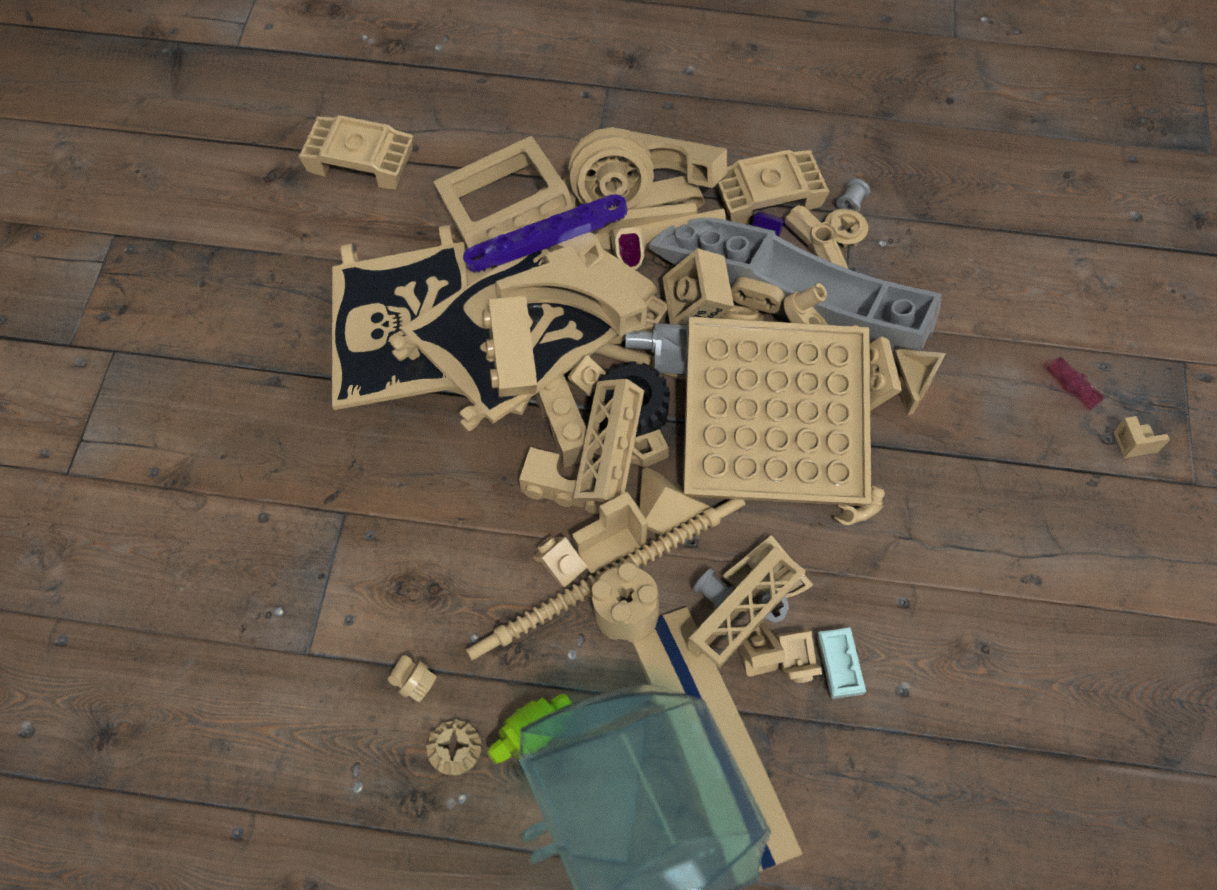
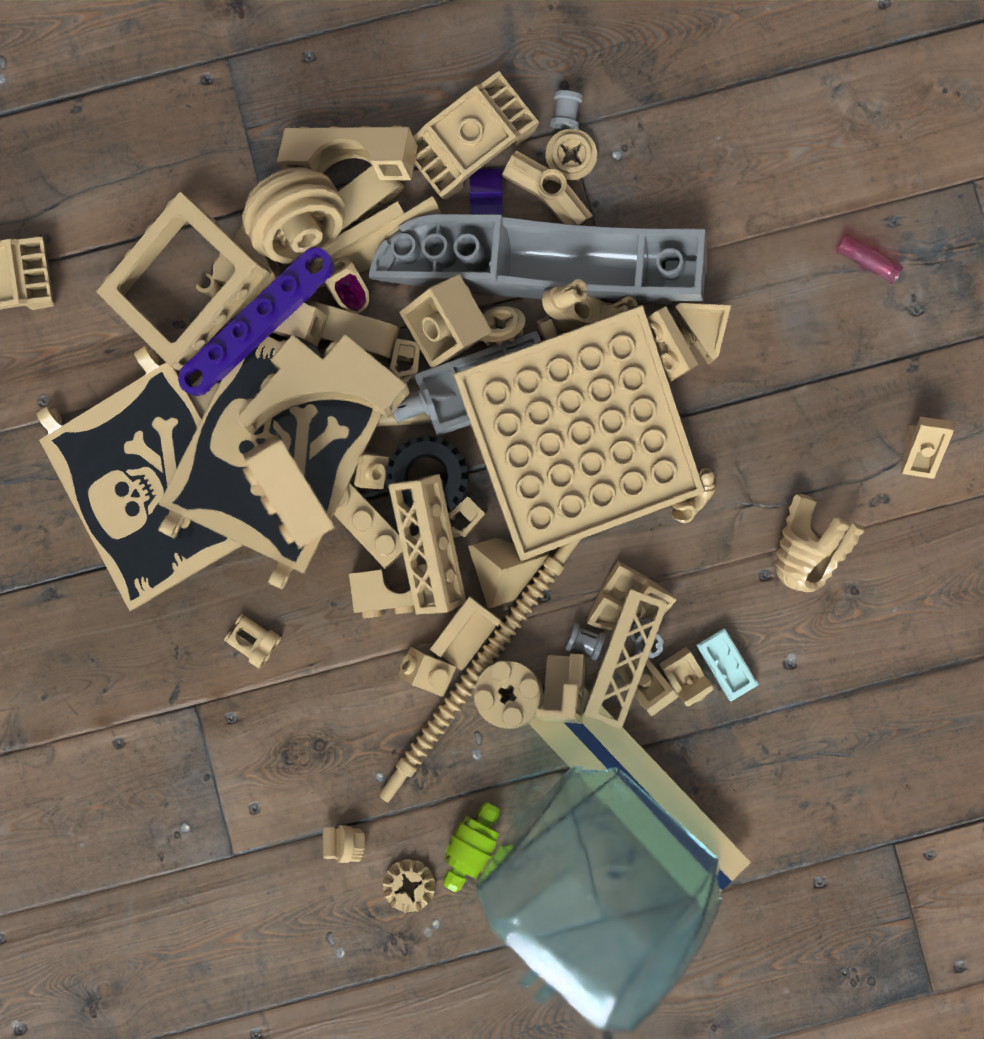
camera: 20 degrees left, 25 degrees up
(425, 486) = (262, 648): none -> tan piece
(674, 625) = (564, 689): none -> tan panel
(757, 294) = (508, 296): tan beam -> none
(942, 590) = (805, 559): none -> tan hair
(1090, 543) = (926, 446): none -> tan slope
(1138, 439) = (947, 301): tan panel -> none

